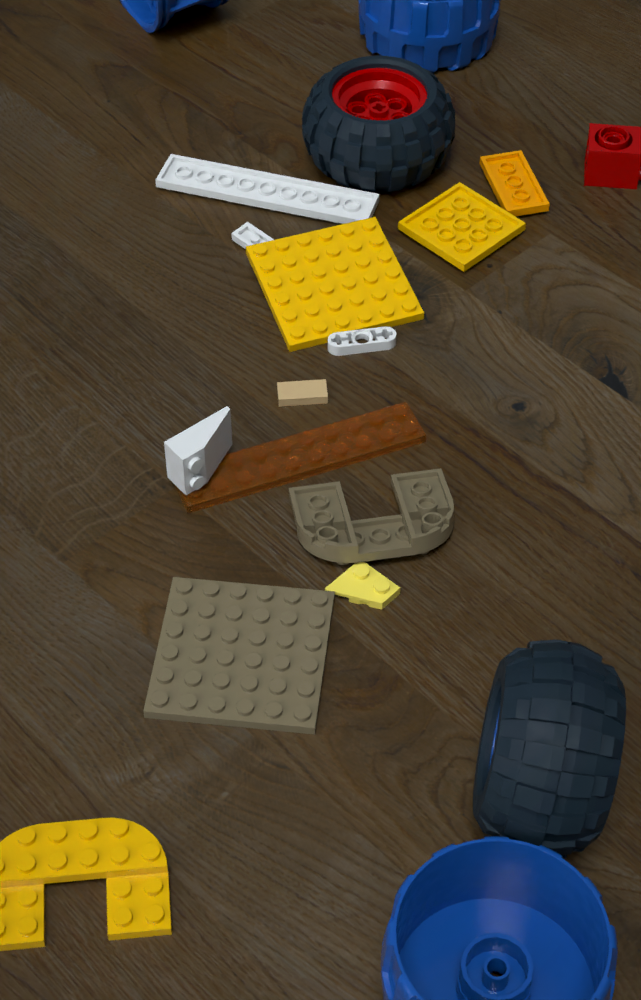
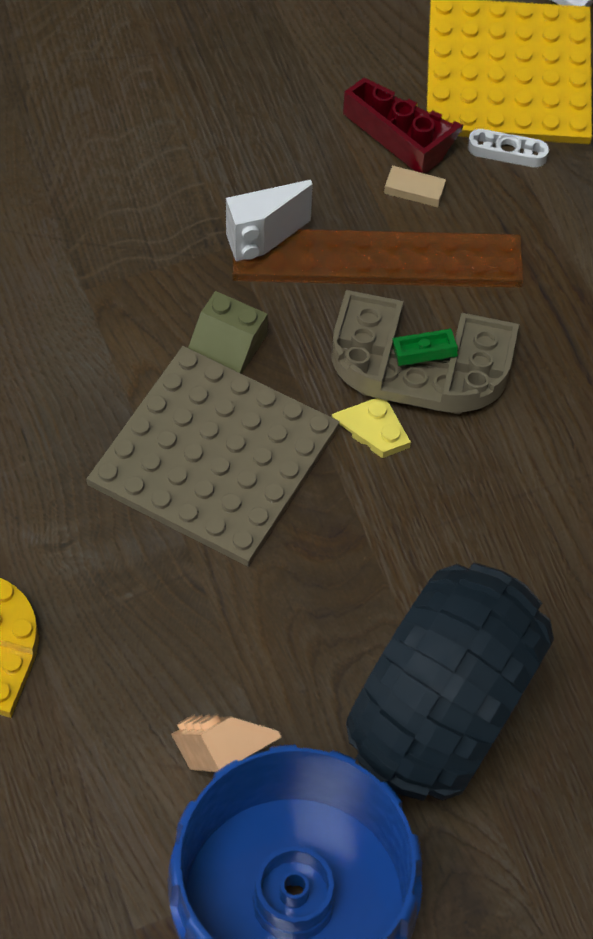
camera: 20 degrees right, 10 degrees up
(208, 551) = (229, 332): none -> olive slope
(268, 349) = (399, 125): none -> dark red wedge
(374, 874) = (215, 741): none -> light nougat slope
(378, 508) = (425, 347): none -> green plate

